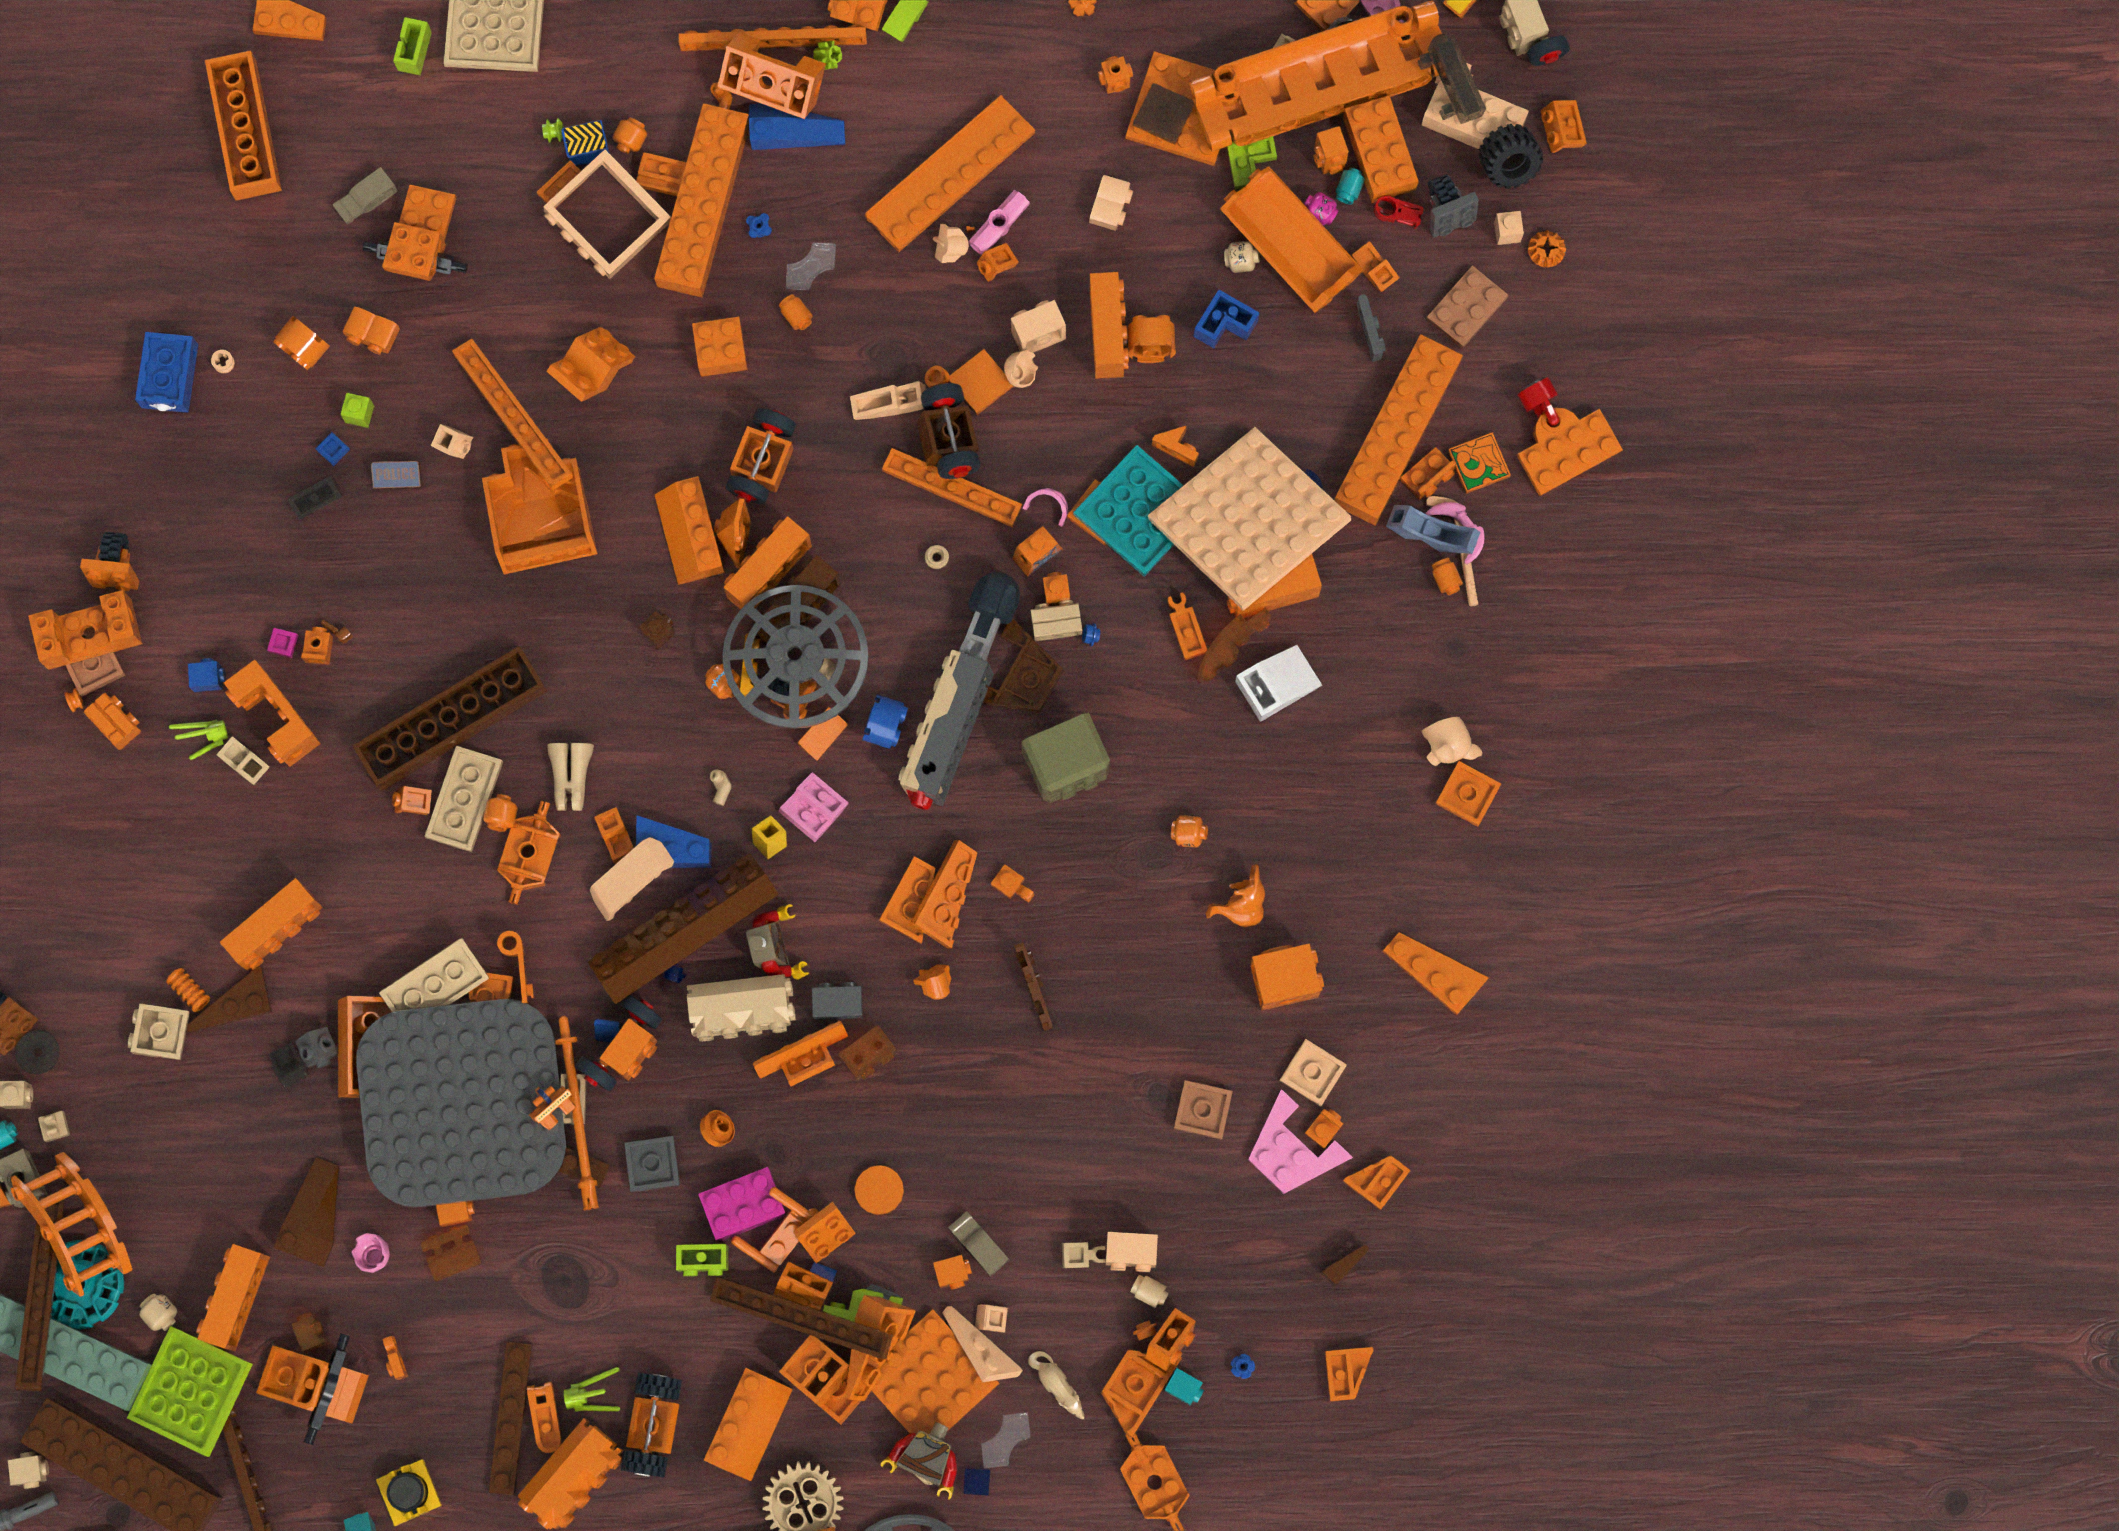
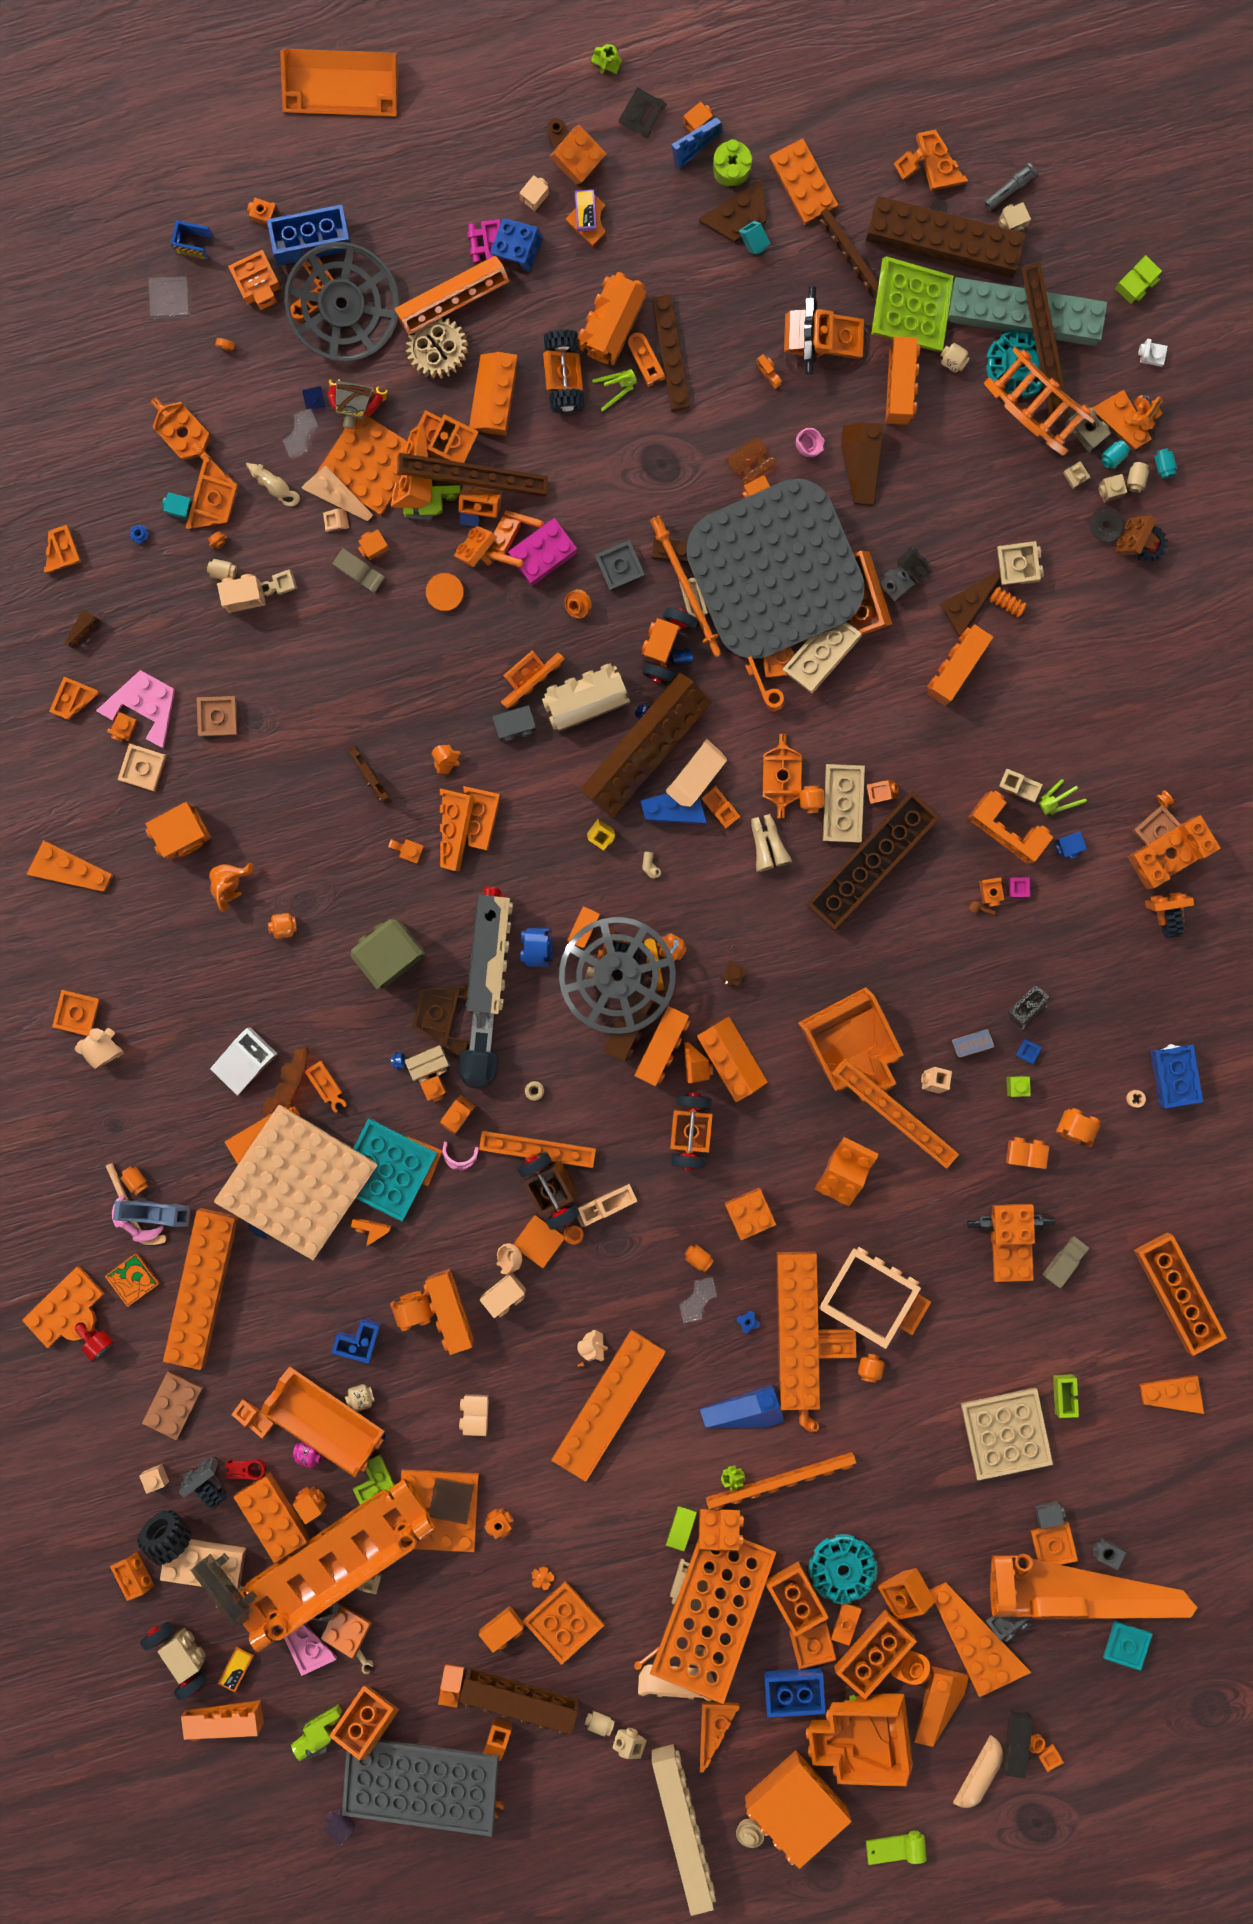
camera: 165 degrees right, 10 degrees up
(112, 721) = (1130, 791): orange brick -> none
(309, 1332) = (837, 372): clear orange brick -> none
(407, 1492) = (729, 278): piece -> none
(553, 130) = (933, 1356): lime wheel -> none
(560, 1099) = (707, 584): orange hips -> none
(584, 142) = (904, 1352): piece -> none
(702, 1257) = (561, 503): lime brick -> none
(768, 944) = (578, 751): torso -> none
(793, 87) = (751, 1441): orange plate -> none
(813, 807) = (575, 869): bright pink slope -> none
(868, 1053) = (480, 691): clear orange brick -> none
(996, 261) = (552, 1342): orange bracket -> none
(1008, 212) = (563, 1363): bright pink piece -> none
(1170, 1339) = (195, 535): orange brick -> none
(1349, 186) = (289, 1480): teal brick -> none
(1370, 325) = (244, 1368): dark grey hinge -> none
(1428, 474) = (169, 1260): orange bracket -> none
(1538, 255) = (126, 1463): orange gear -> none

